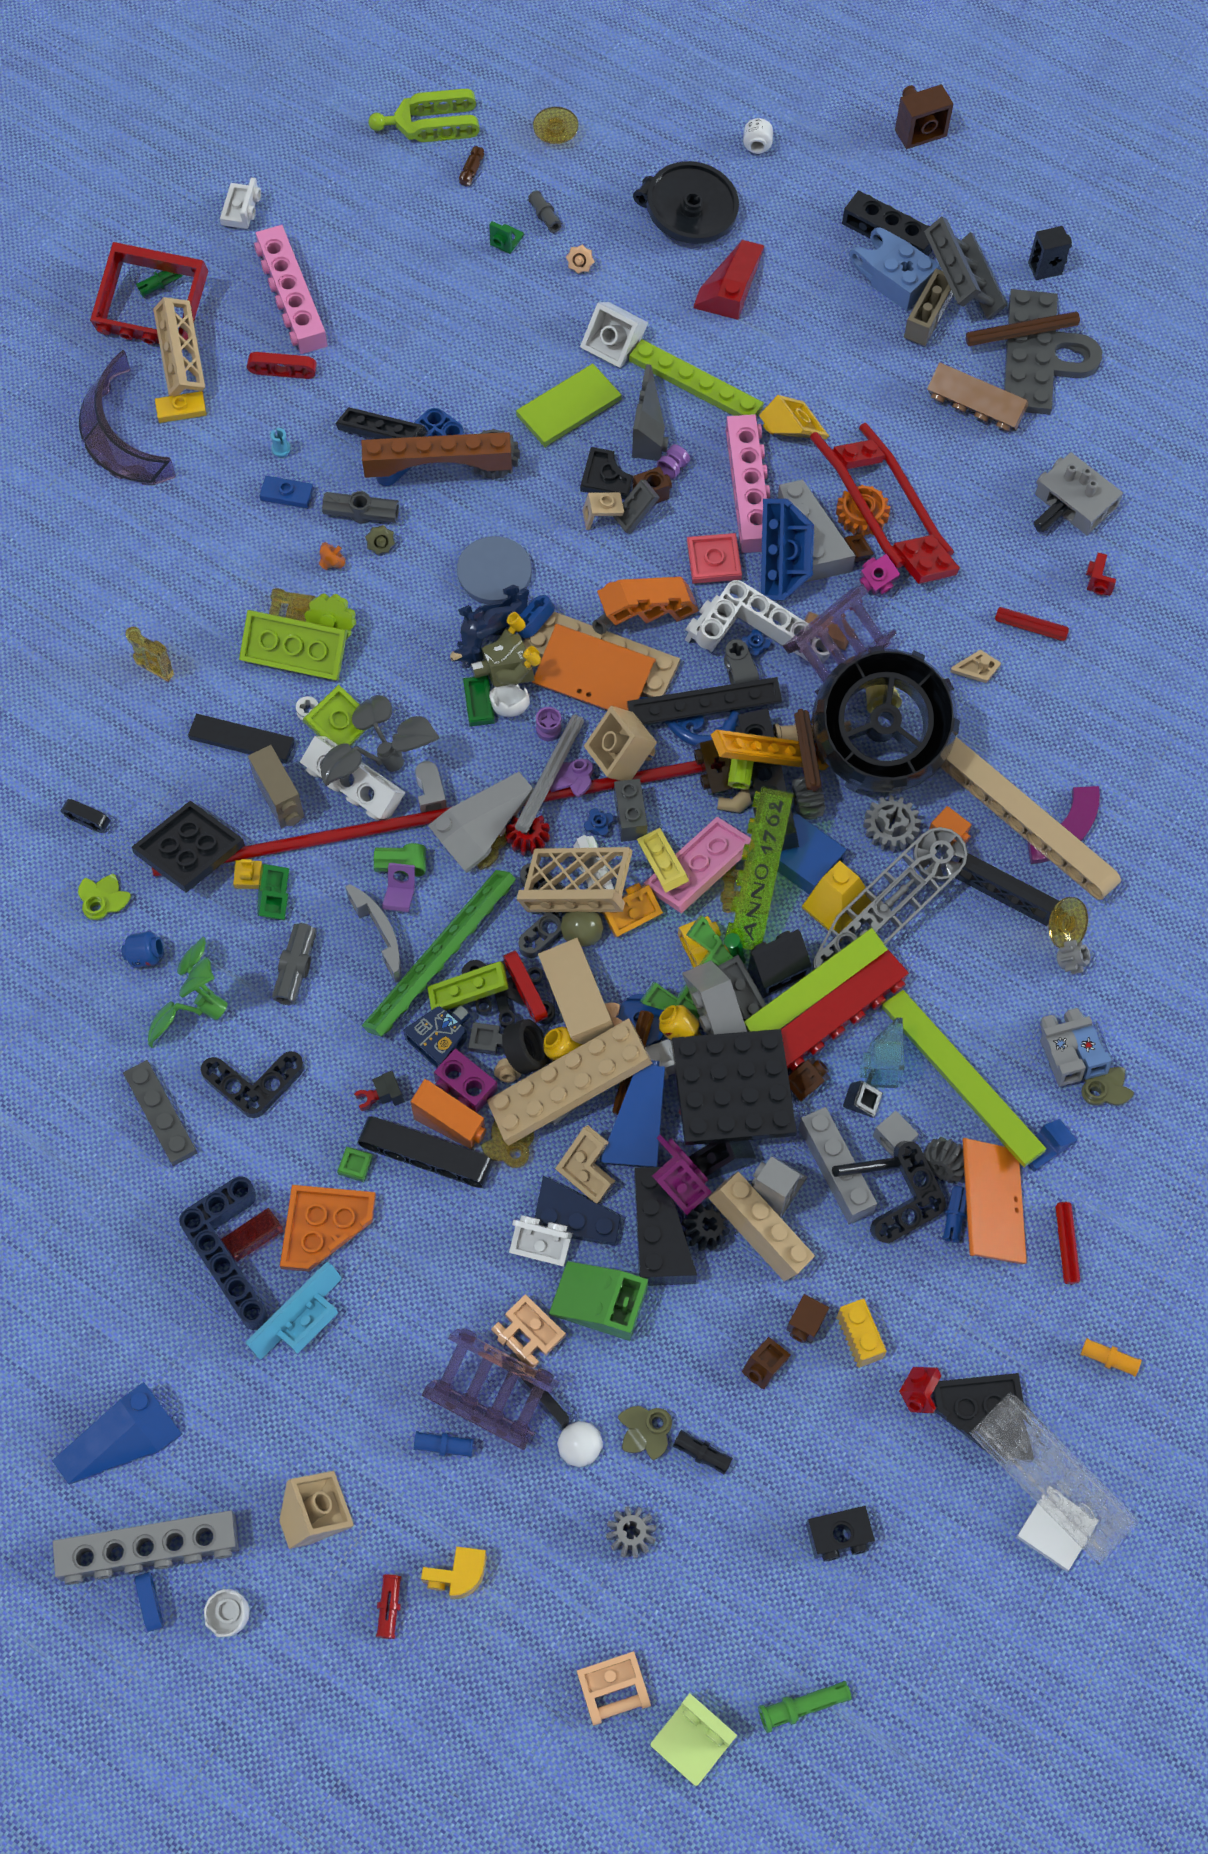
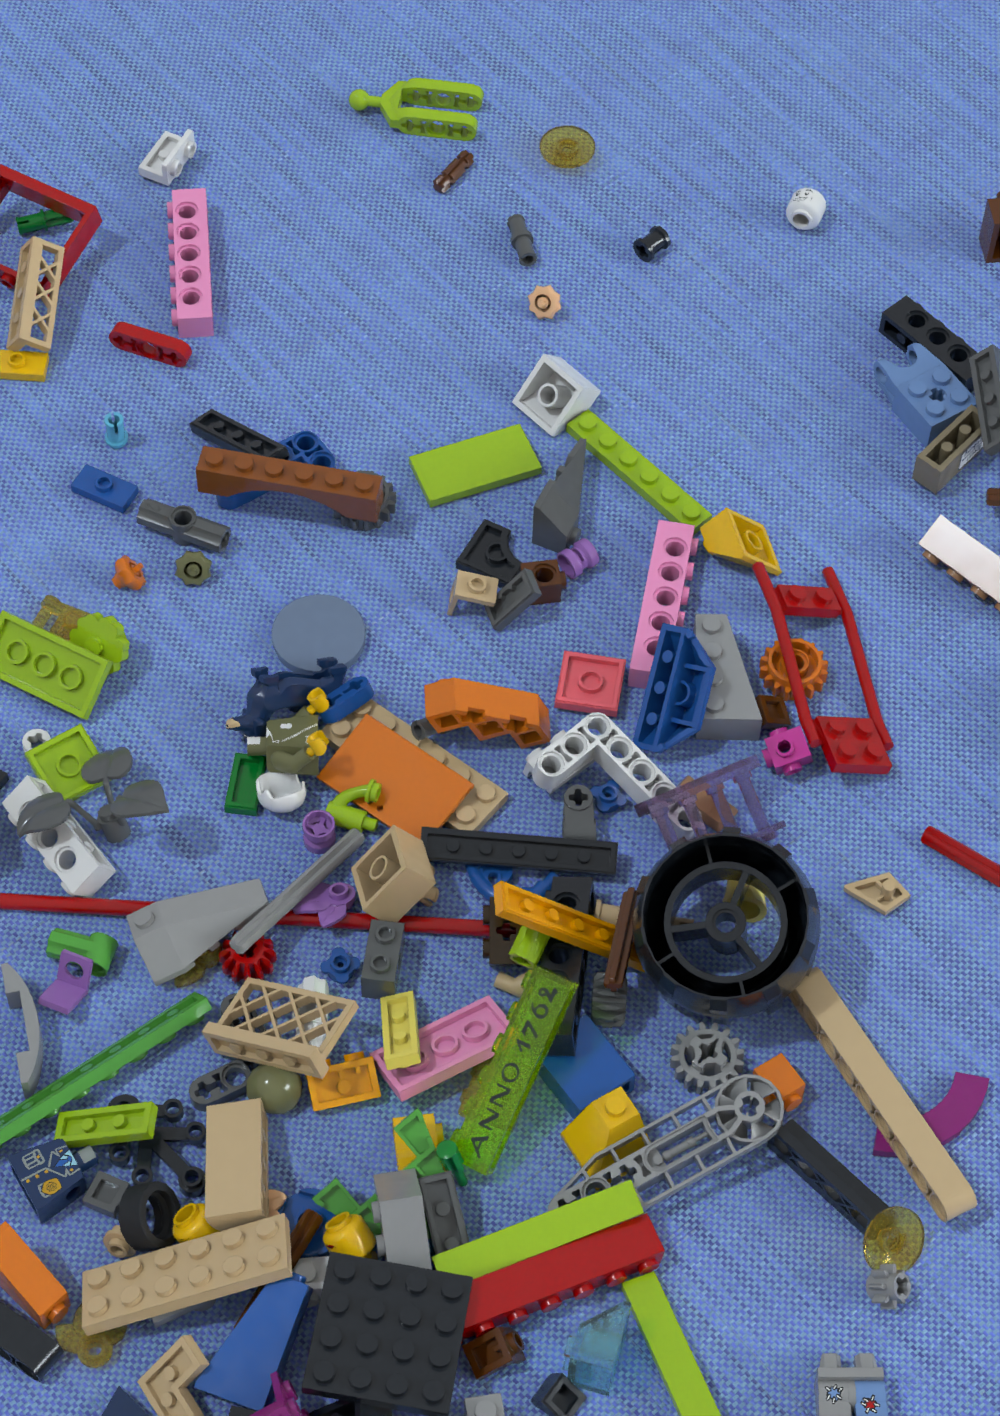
camera: 15 degrees right, 10 degrees down
(429, 781) = (151, 872): light grey leg -> none
(470, 1077) = (68, 1239): magenta brick -> none
(502, 236) = (459, 258): green bracket -> none
(525, 986) = (175, 1142): red beam -> none
(570, 707) = (351, 817): none -> lime plant
(692, 202) = (700, 266): black dish -> none
(730, 283) = (719, 369): red wedge -> none
(779, 963) = (502, 1194): black slope -> none

